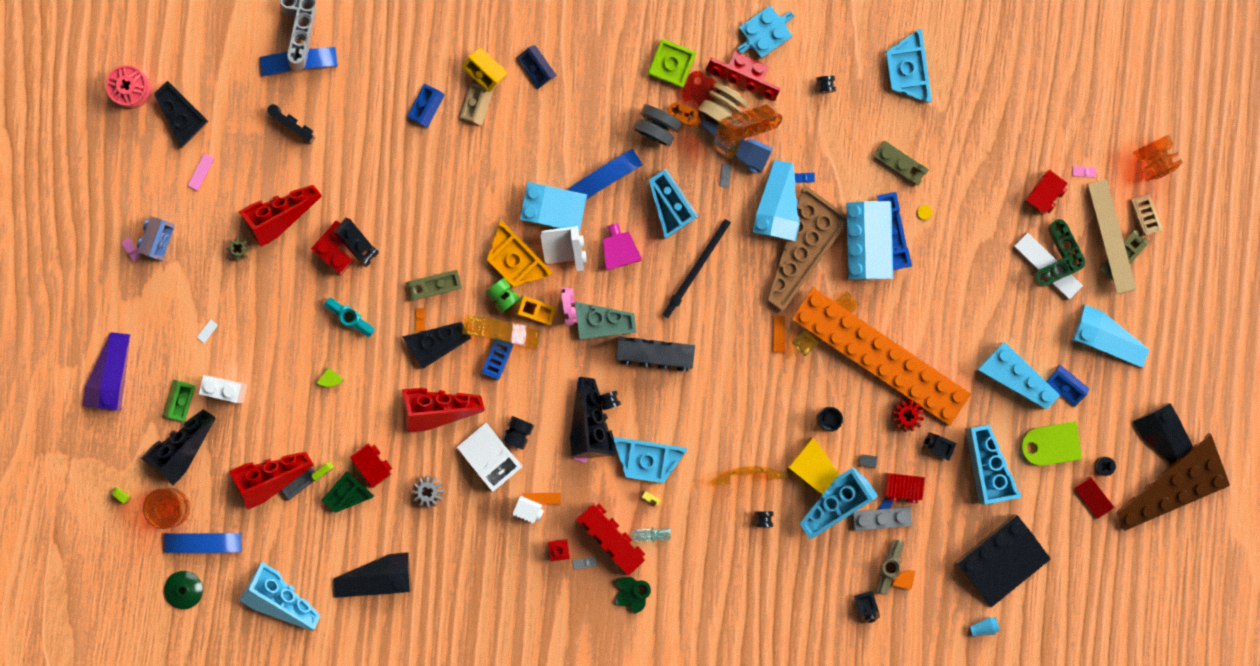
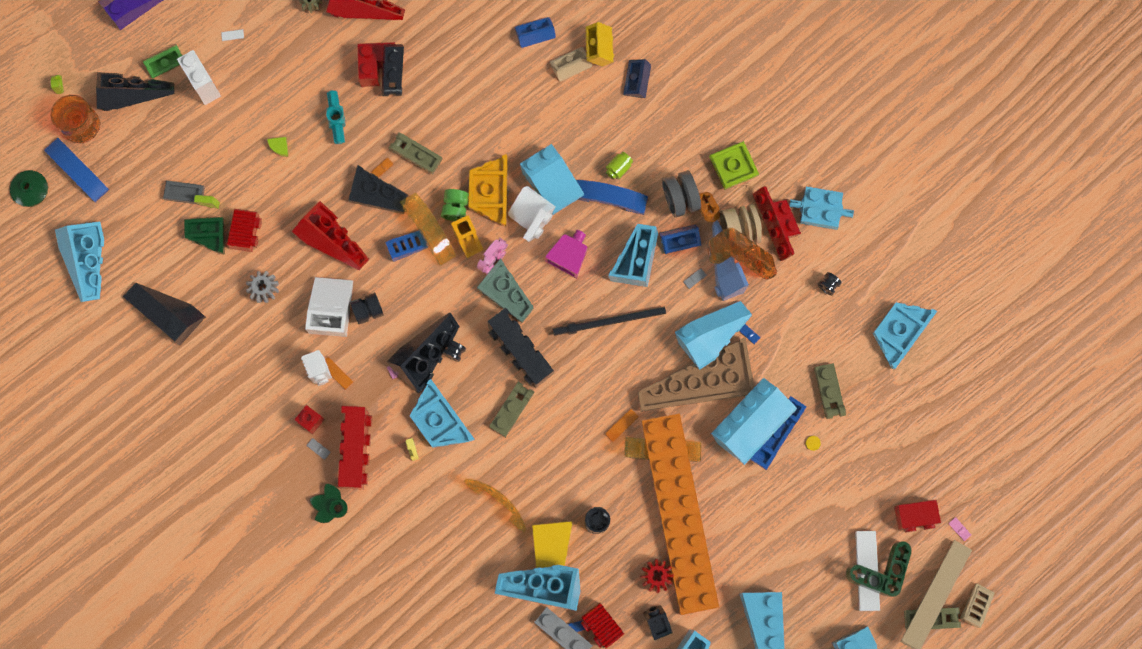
camera: 40 degrees right, 10 degrees down
(264, 480) = (156, 166): red wedge -> none
(590, 147) = (619, 165): none -> lime brick
(652, 534) = (386, 475): clear light blue axle -> none
(686, 156) = (680, 238): none -> blue slope
(691, 401) = (511, 410): none -> olive plate
(700, 91) = (731, 200): clear red plate -> none
(763, 518) = (476, 545): black wheel -> none
(868, 460) = (595, 581): dark grey piece -> none
(1158, 158) = (1027, 570): clear orange wheel -> none

